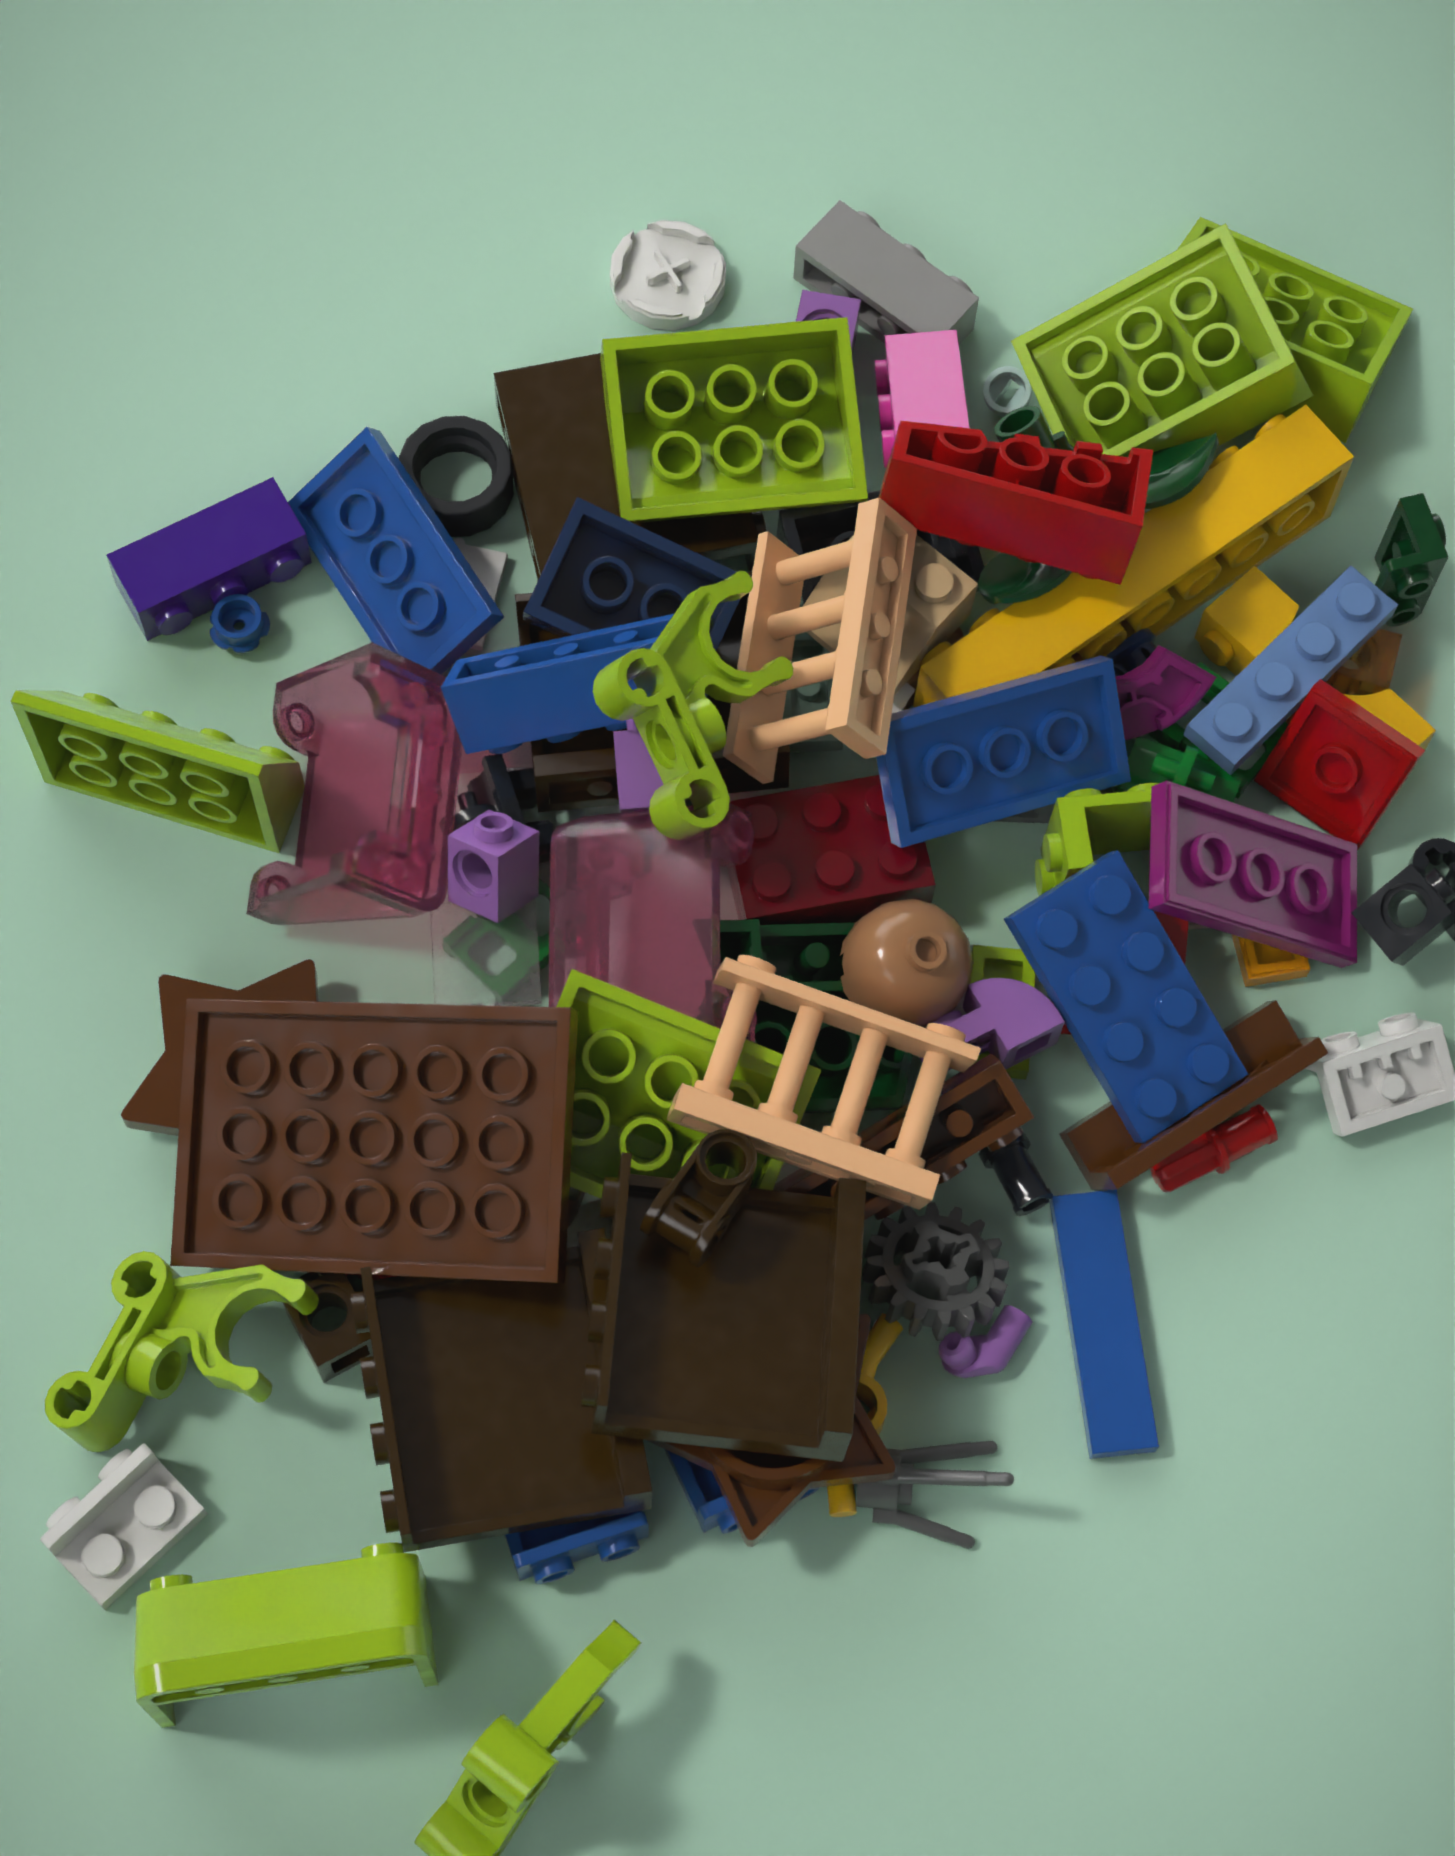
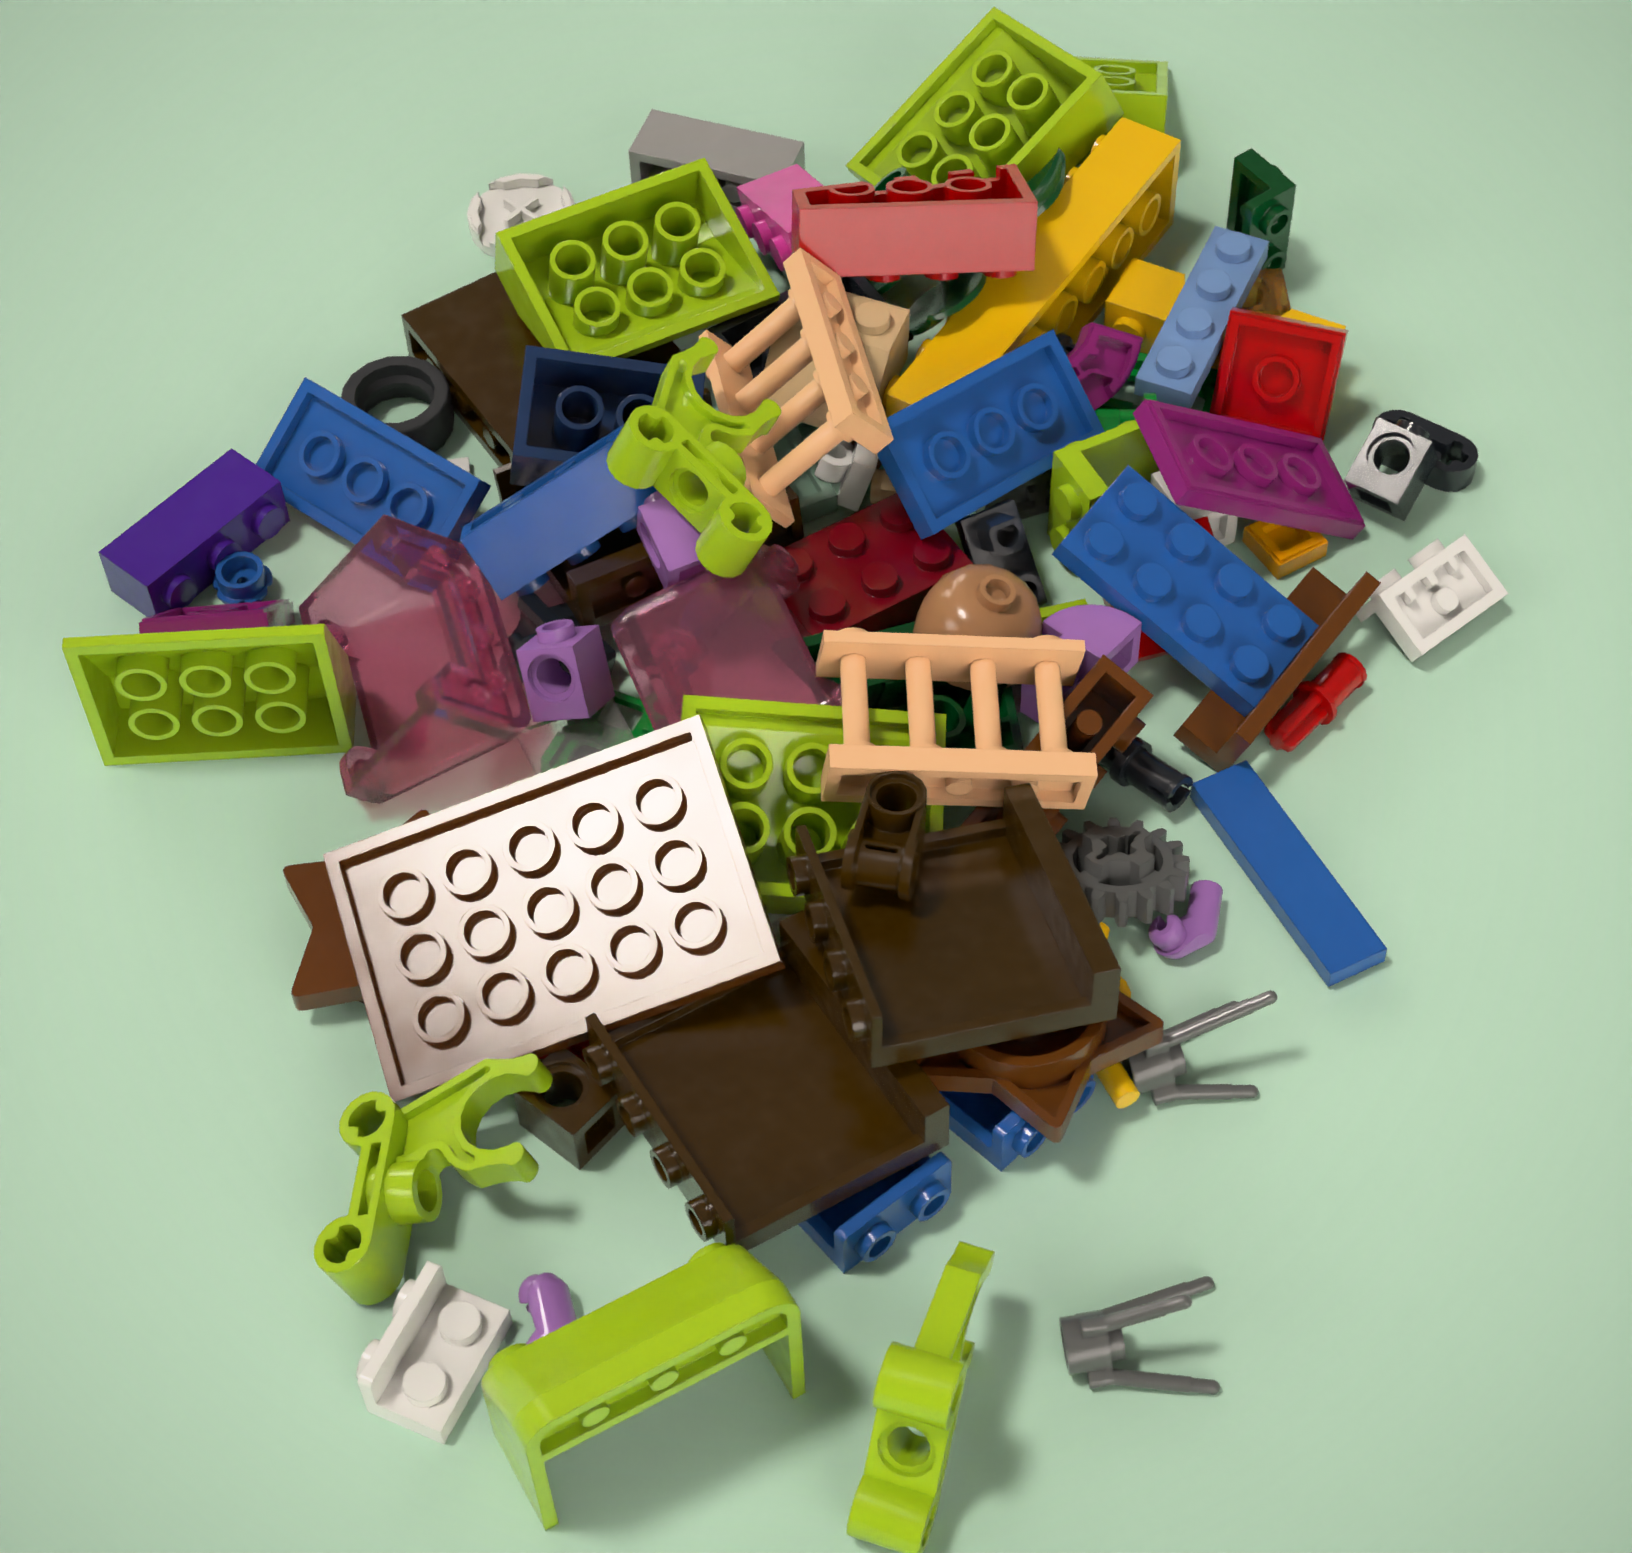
camera: 15 degrees left, 15 degrees down
(188, 684) = (221, 616): none -> magenta tile
(240, 1530) = (547, 1302): none -> medium lavender arm
(710, 1745) = (1096, 1339): none -> dark grey plant
(972, 880) = (1000, 540): none -> black hips

